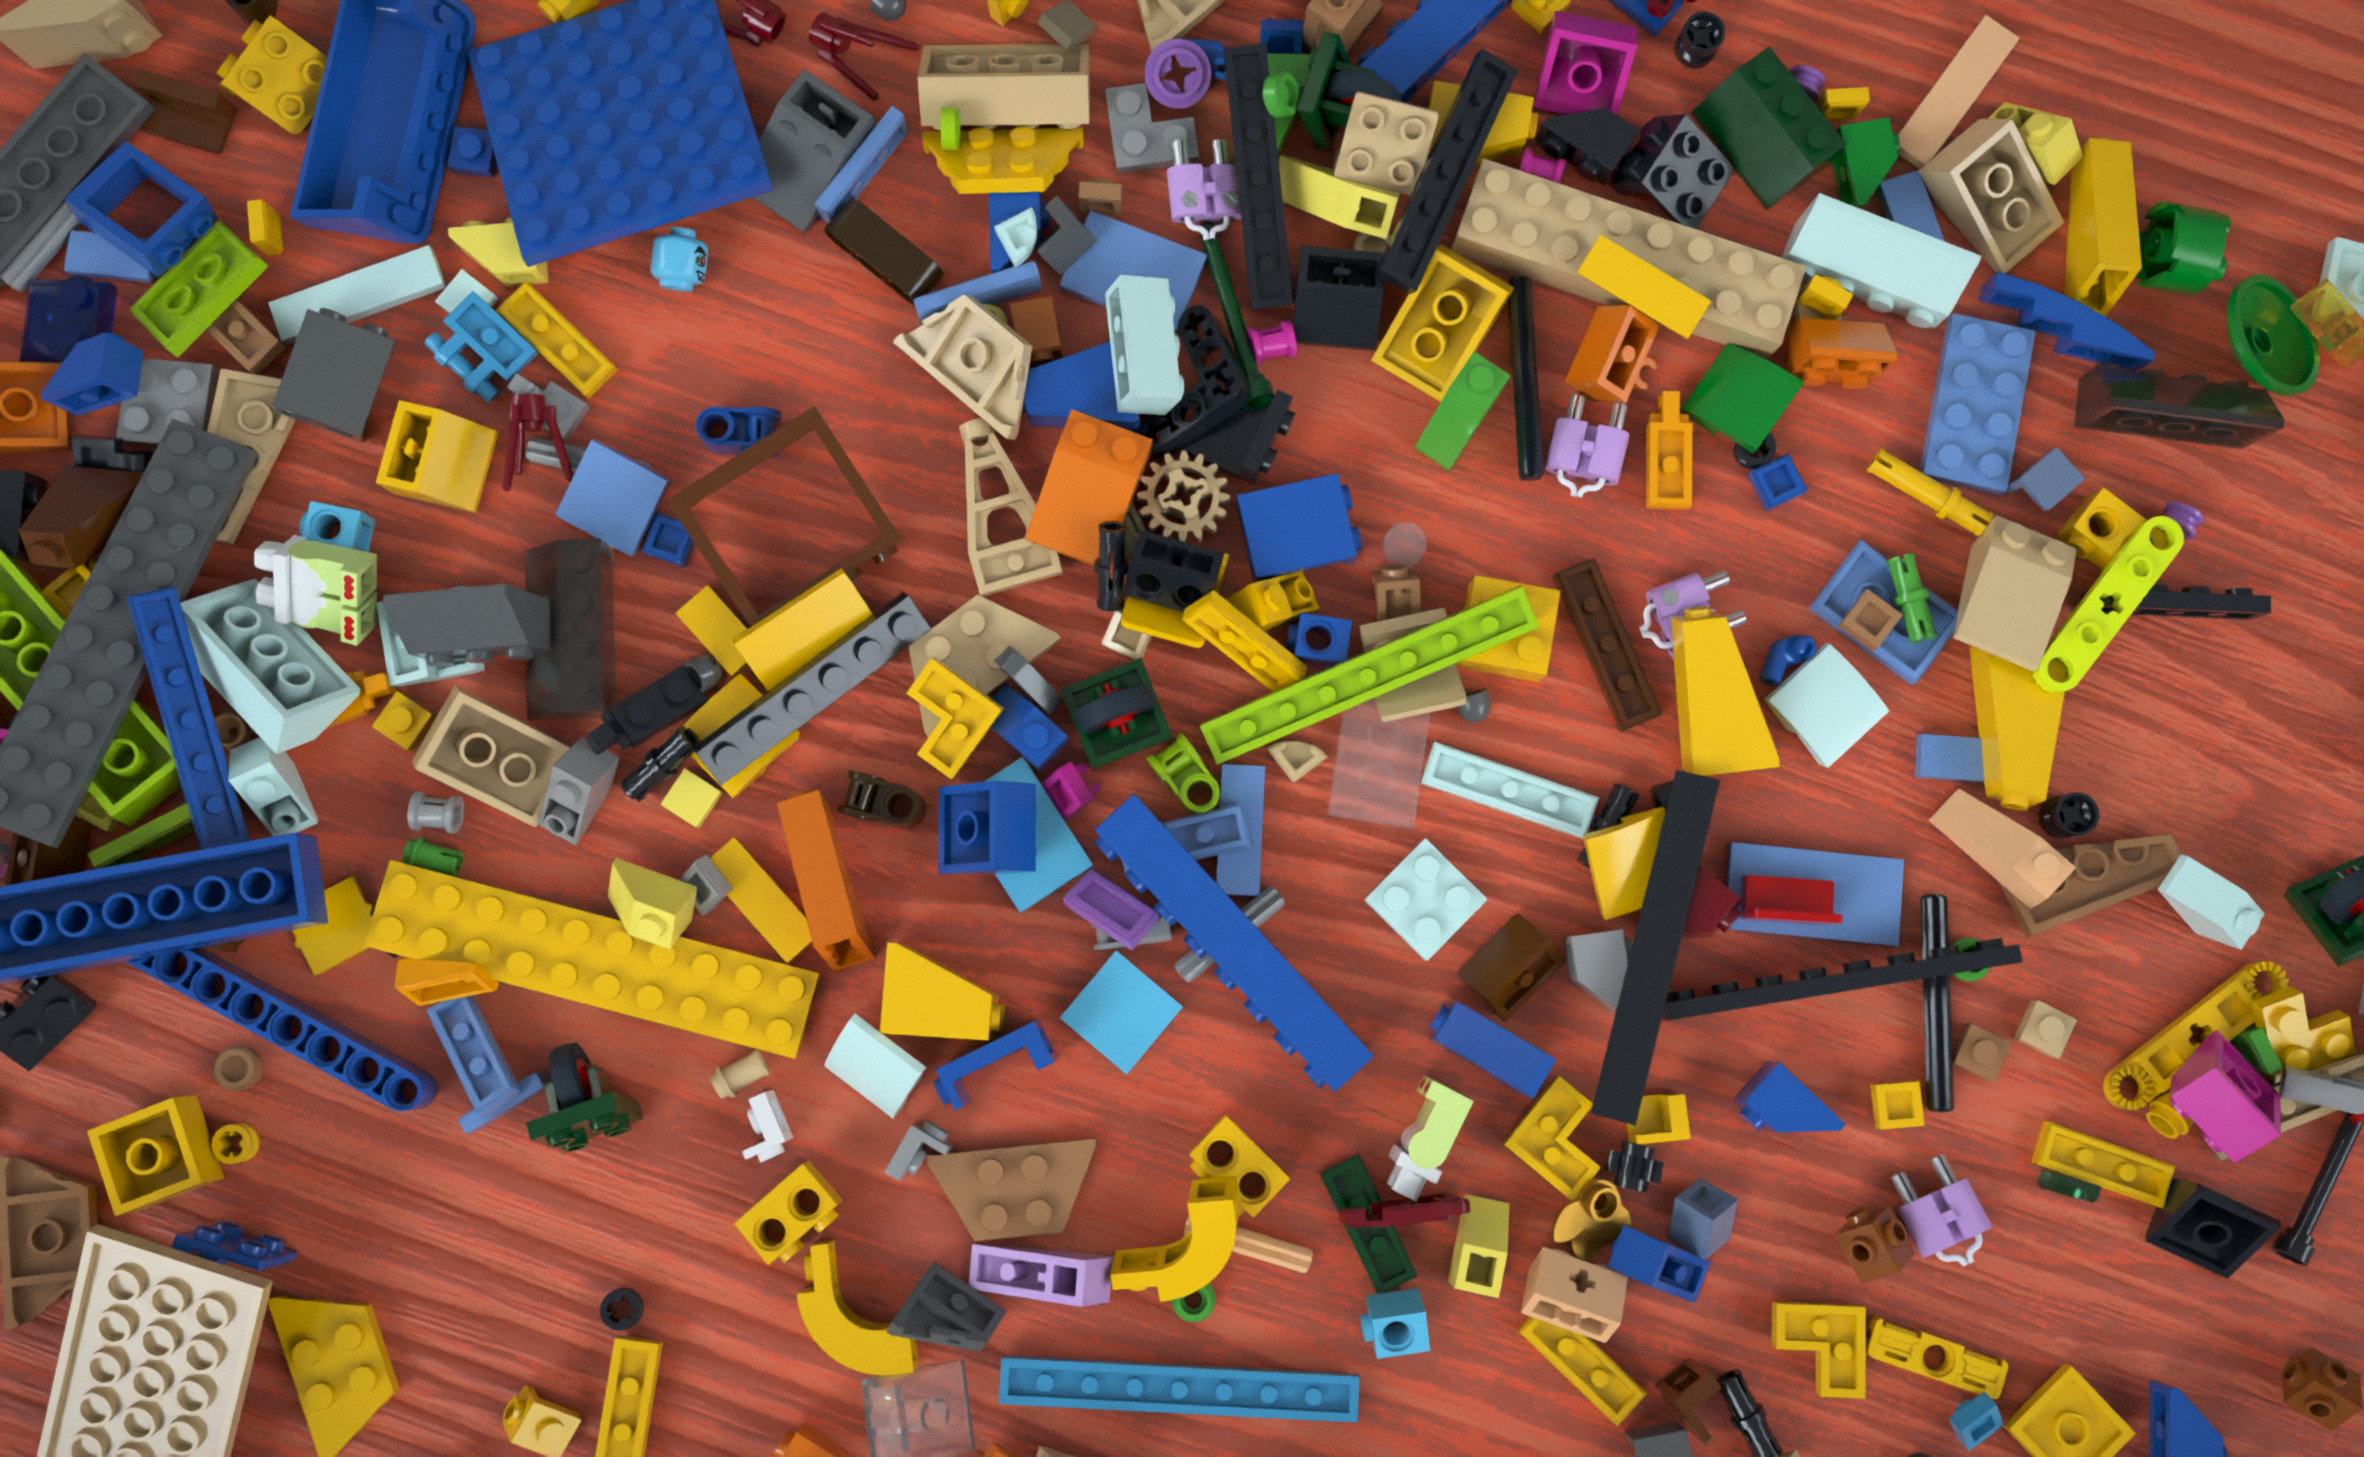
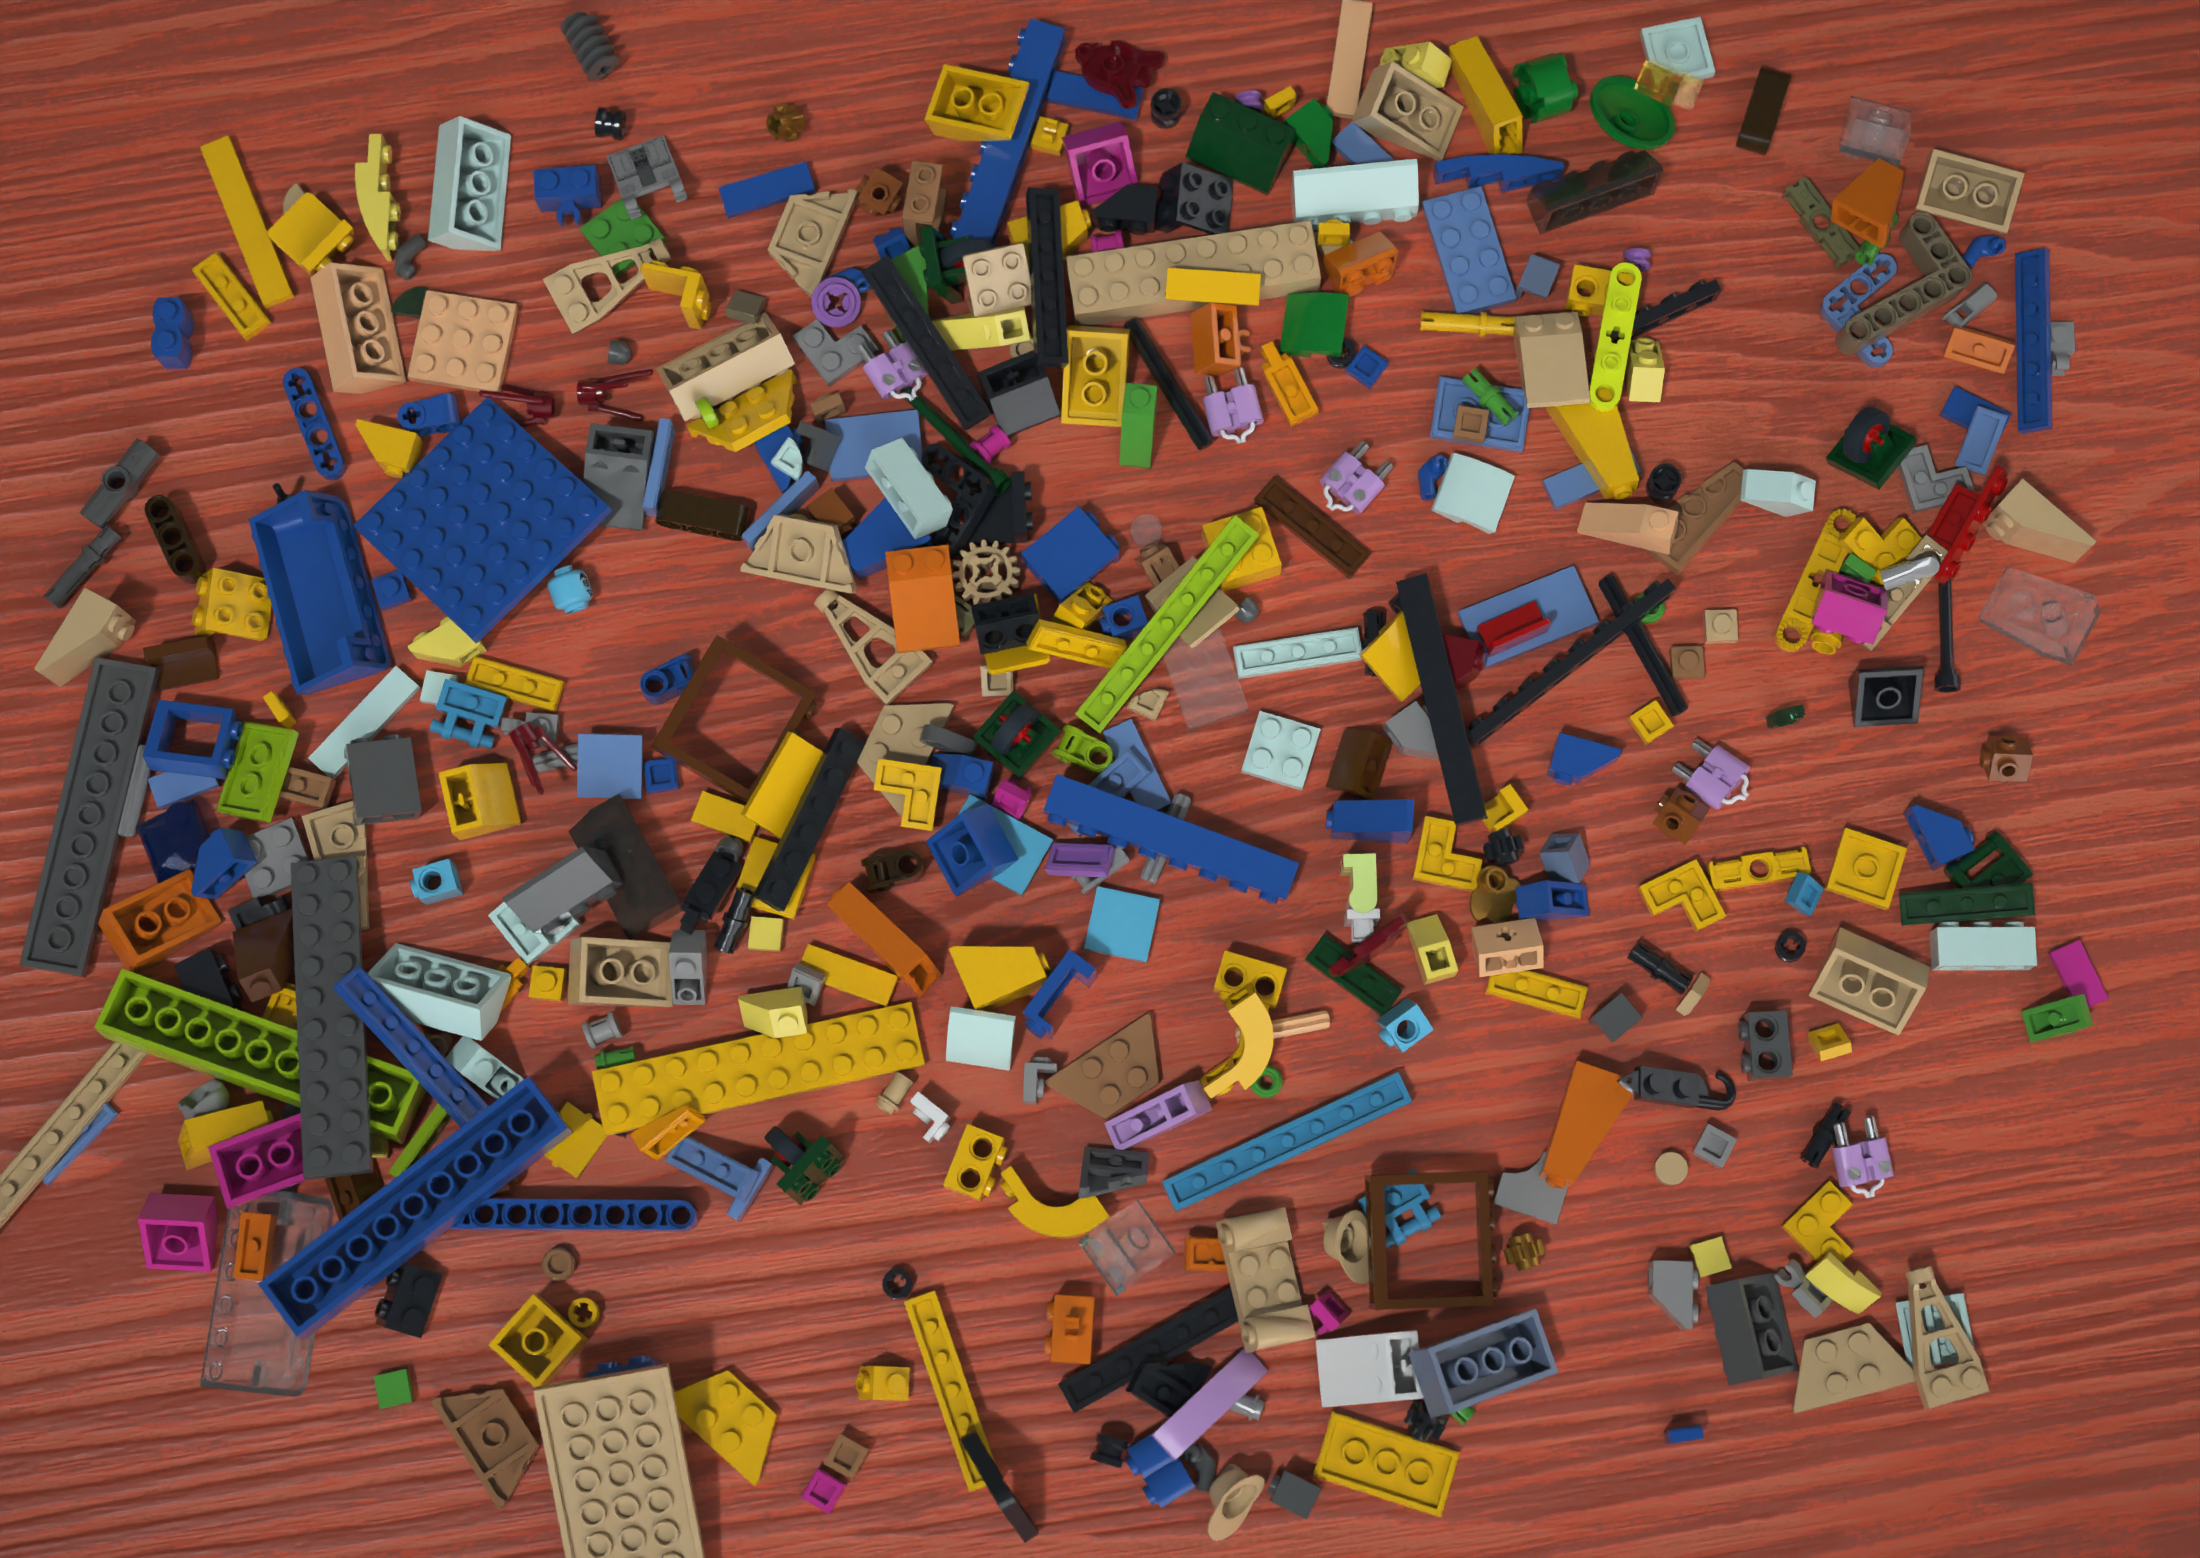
camera: 20 degrees left, 5 degrees down
(319, 586) = (447, 921): hips -> none
(1111, 541) = (955, 623): black pin -> none
(1281, 94) = (914, 282): bright green tile -> none
(1685, 1390) = (1606, 976): reddish brown panel -> none
(1715, 700) = (1399, 526): yellow slope -> none
(2103, 1164) = (1809, 690): yellow tile -> none
(2121, 667) = (1644, 371): none -> light yellow slope

